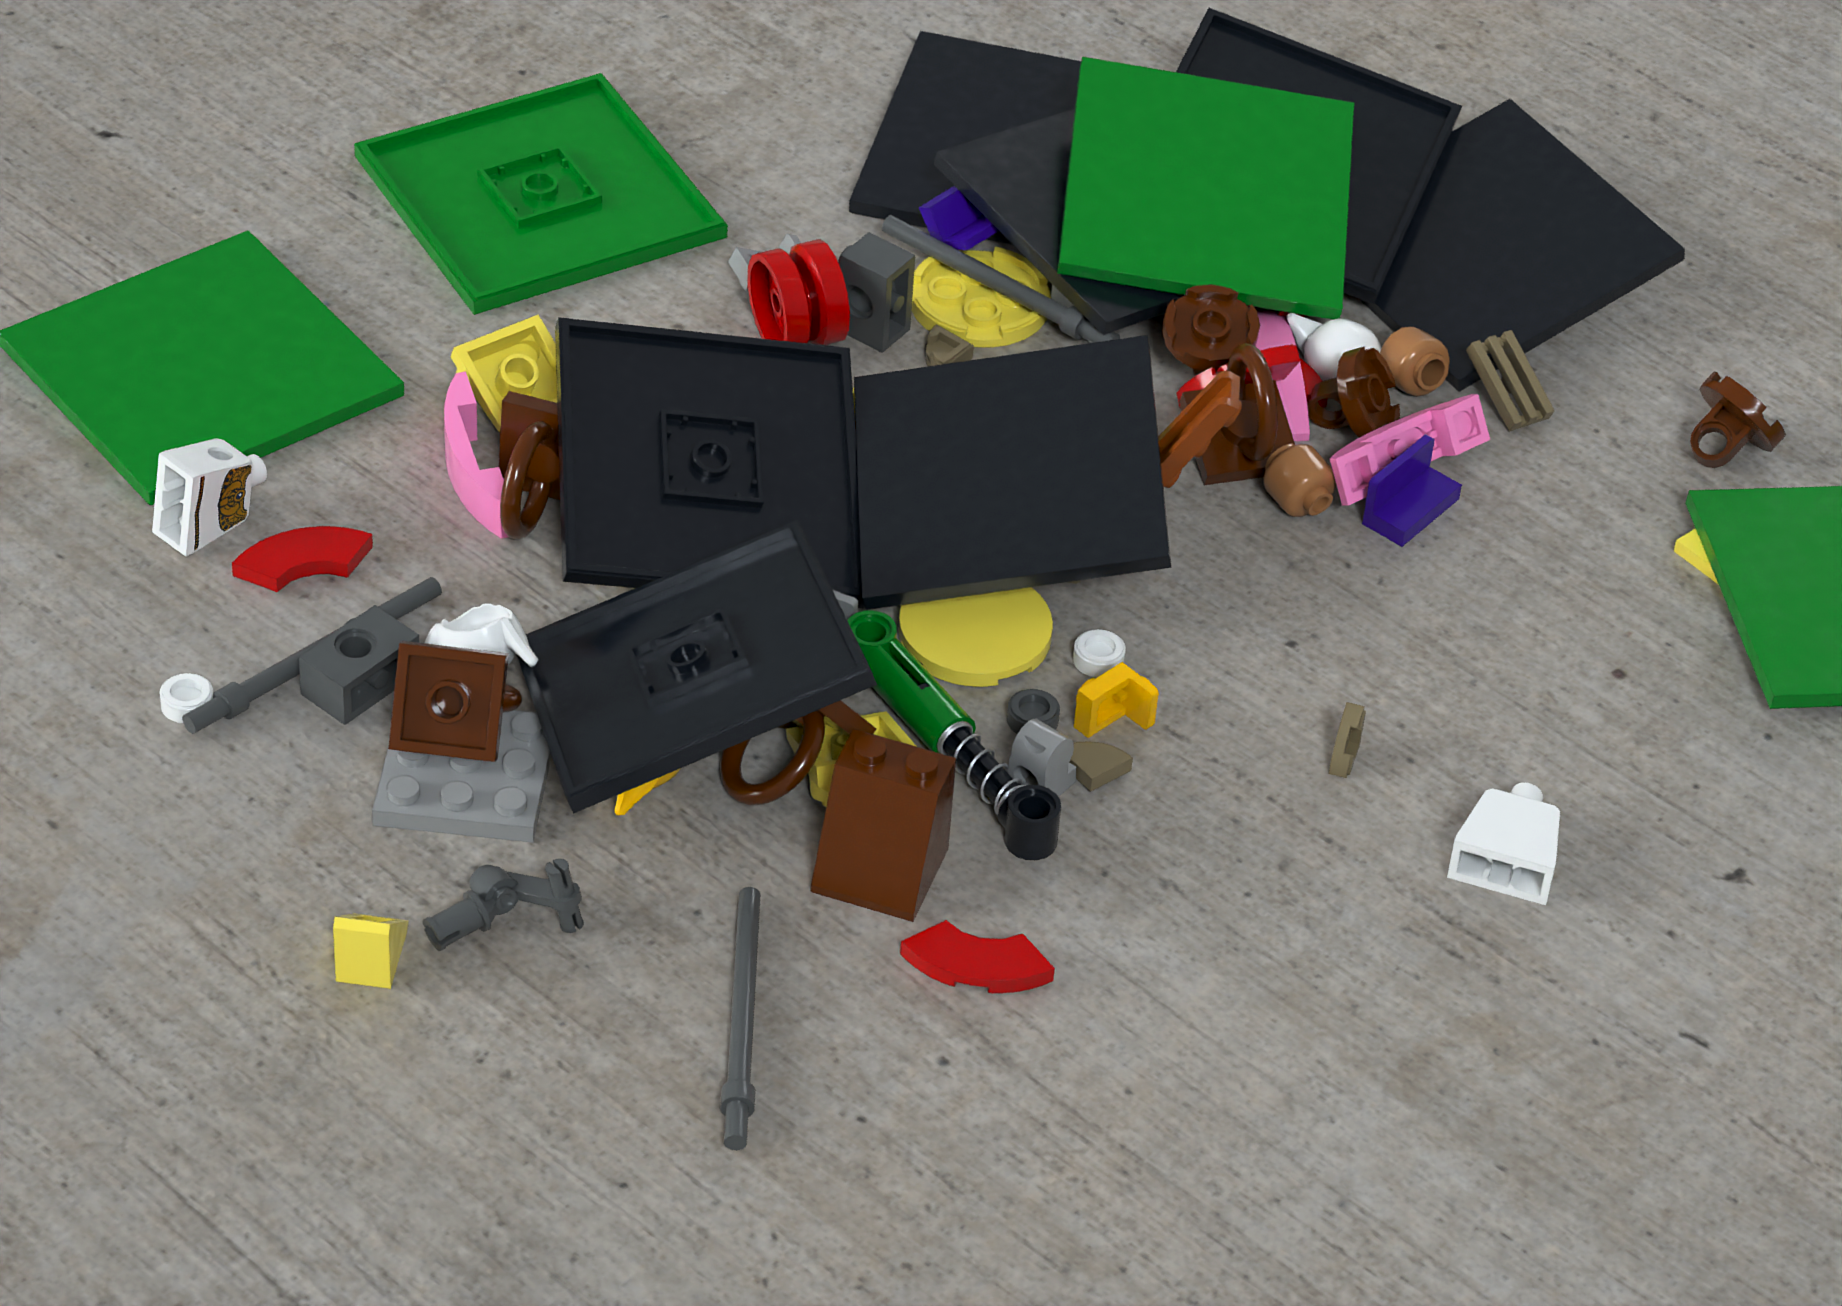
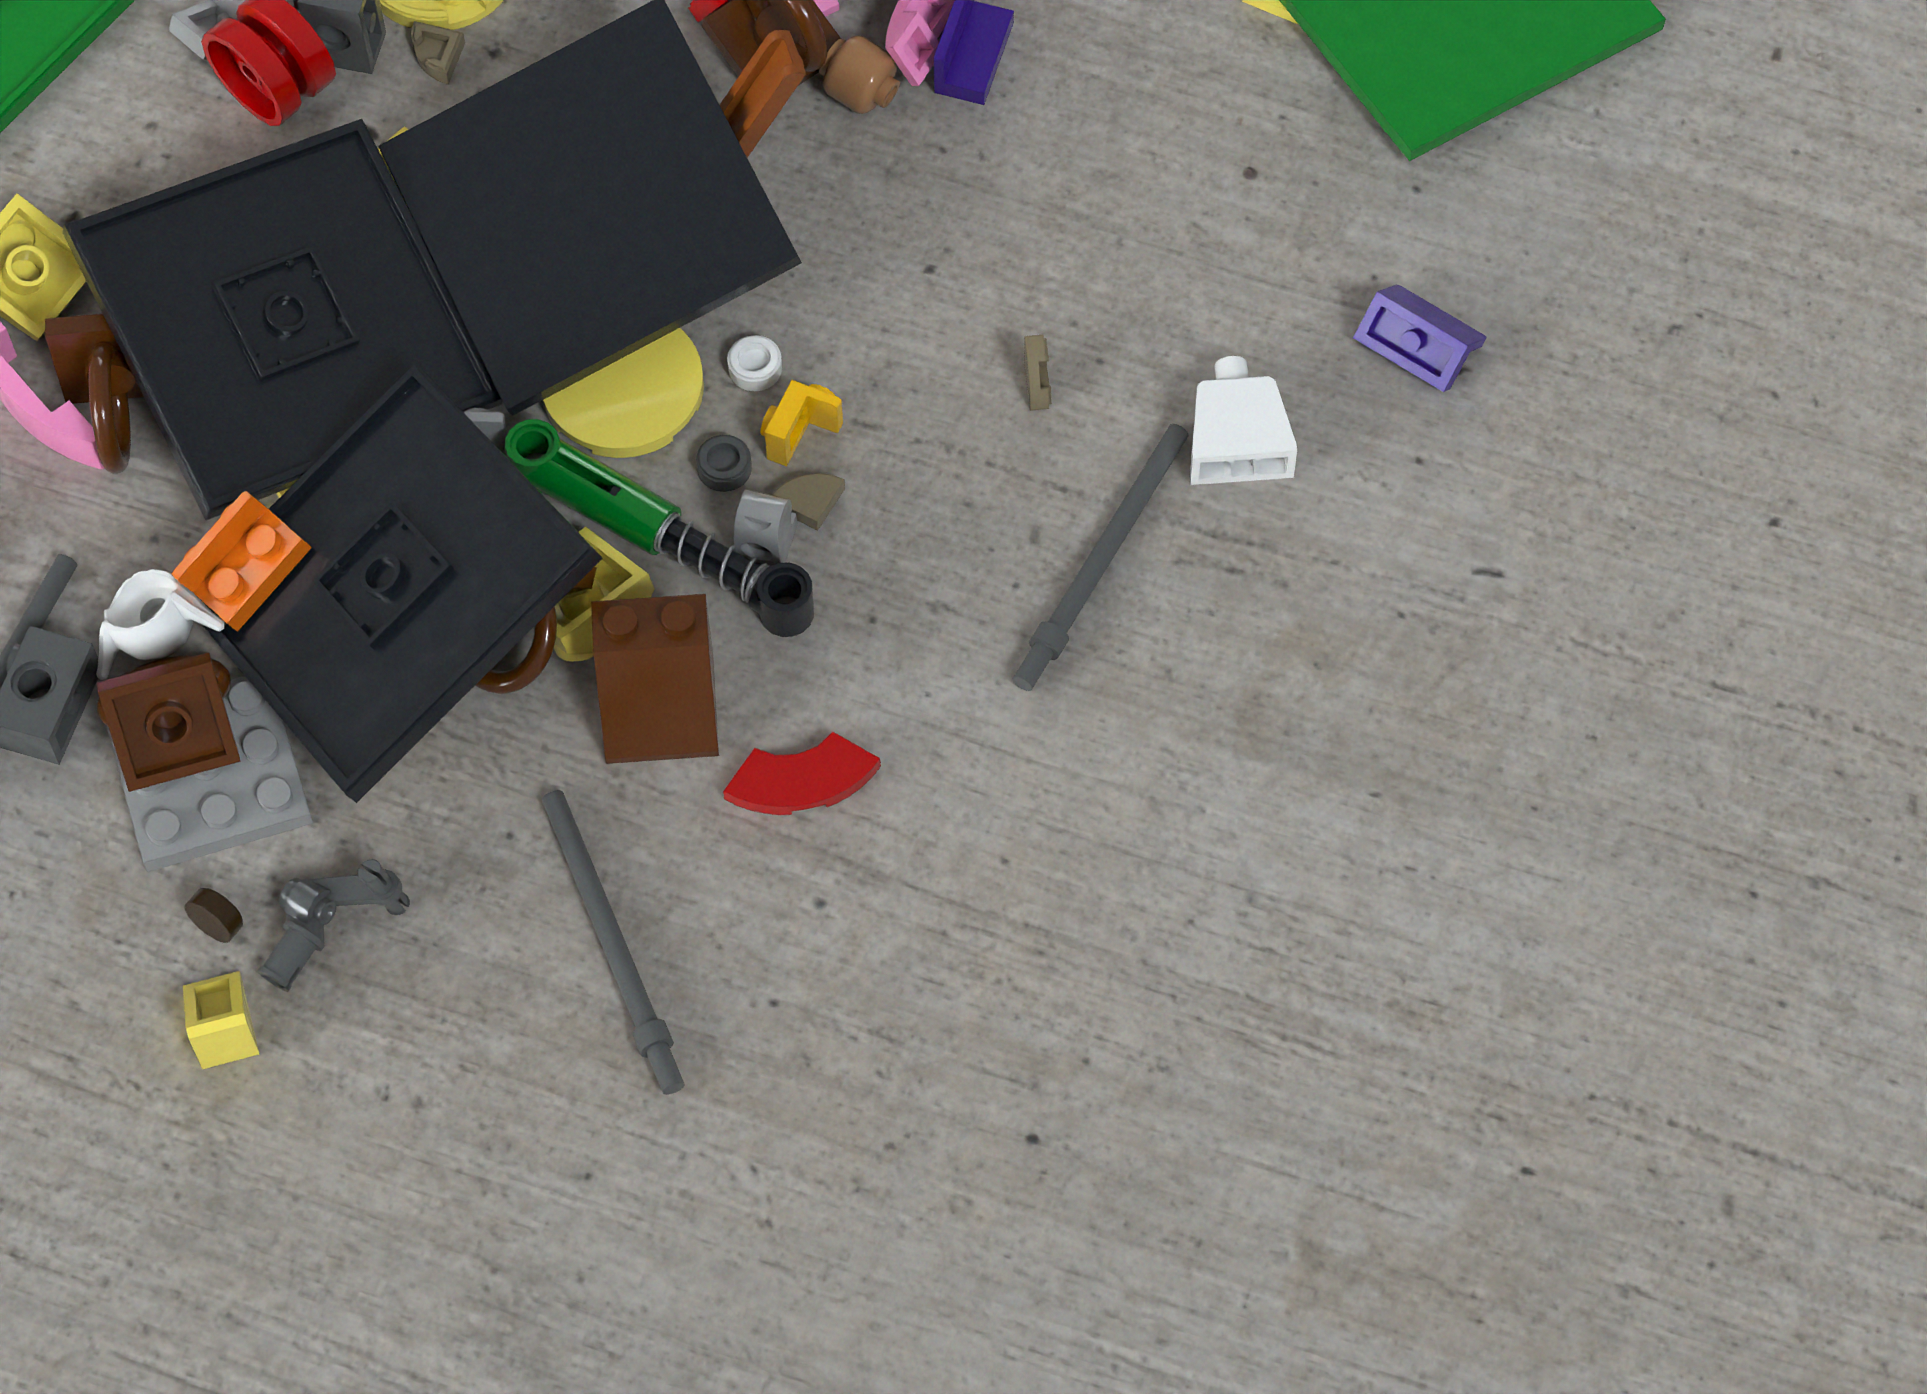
camera: 20 degrees left, 20 degrees up
(409, 867) = (214, 915): none -> dark brown tile
(575, 615) = (241, 560): none -> orange bracket
(1260, 936) = (1052, 636): none -> dark grey bar
(1711, 835) = (1417, 336): none -> panel

